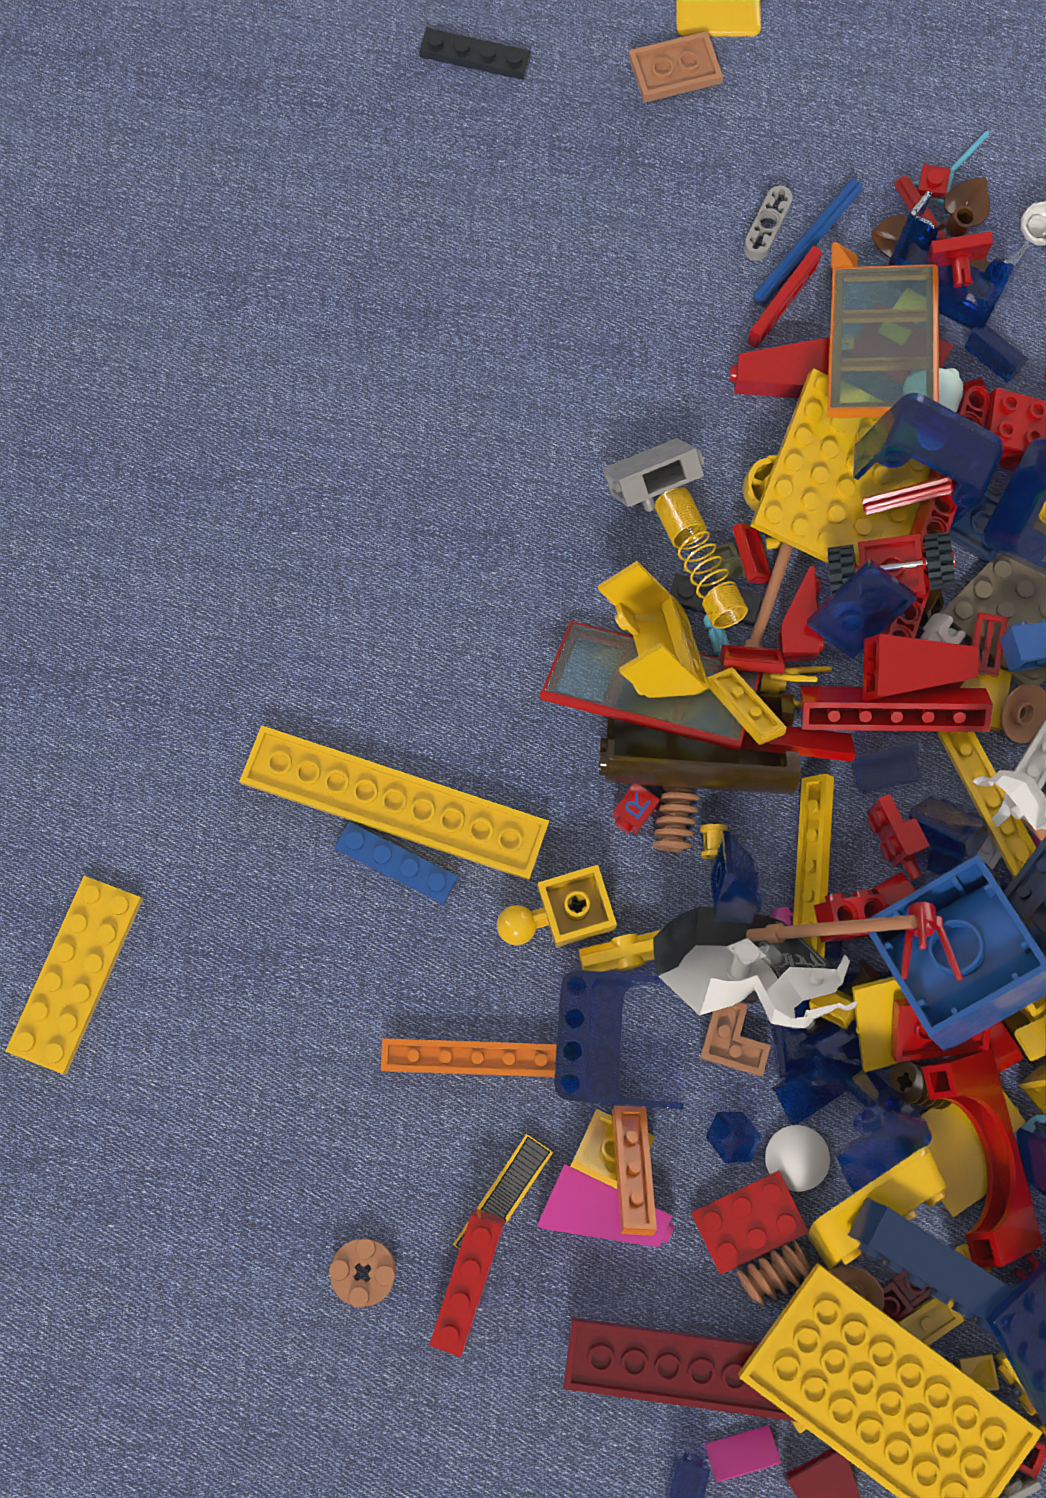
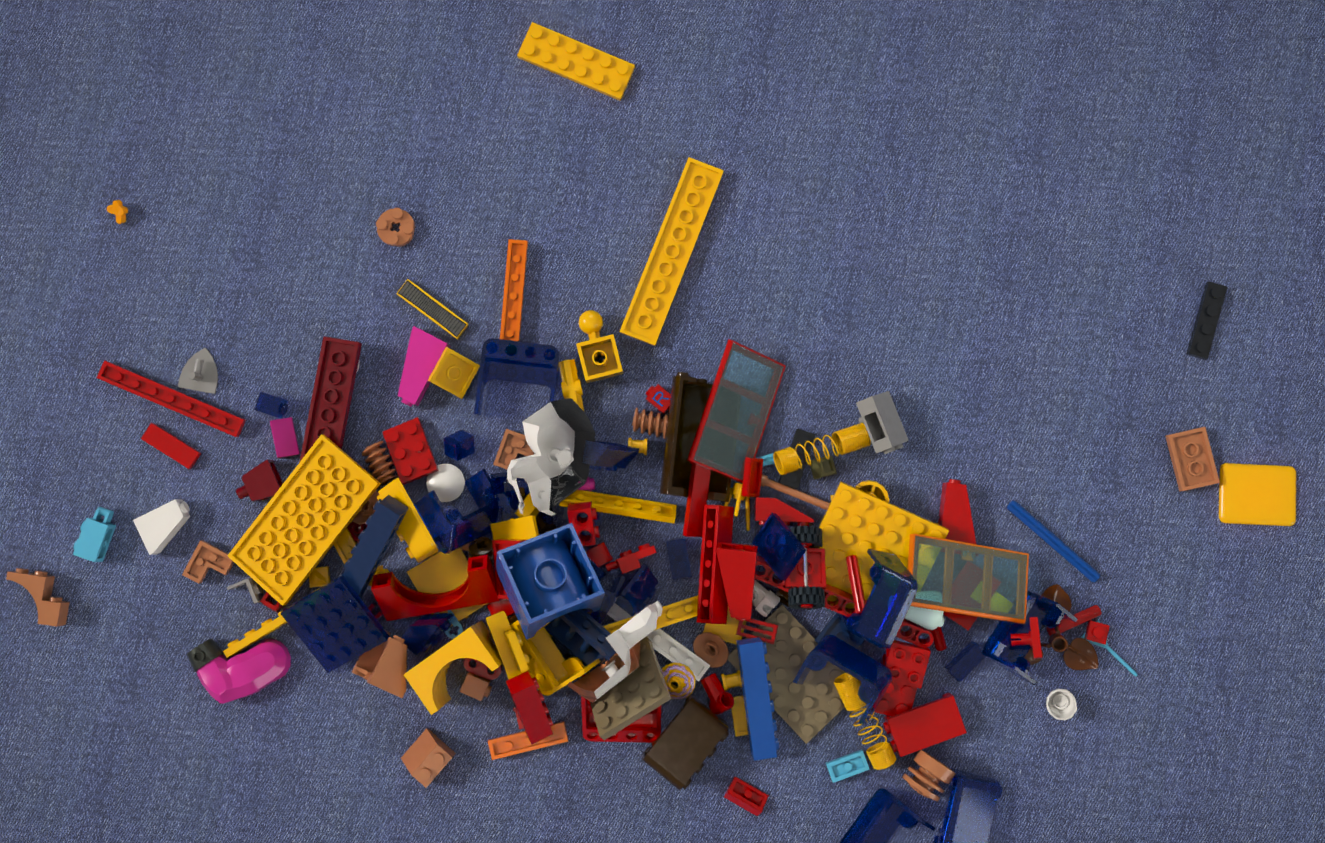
camera: 90 degrees right, 10 degrees up
(396, 863) = (634, 252): blue plate -> none
(467, 1282) = (385, 285): red brick -> none
(633, 1171) = (439, 381): orange plate -> none
(665, 644) = (766, 421): yellow windscreen -> none
(746, 706) = (717, 467): yellow tile -> none
(752, 553) = (824, 484): red tile -> none
(768, 234) = (1083, 516): light grey beam -> none
(778, 932) = (575, 479): nougat bar -> none
(784, 297) = (1009, 520): red tile -> none
(842, 257) = (1037, 563): orange slope -> none
(926, 924) = (565, 555): red plant -> none

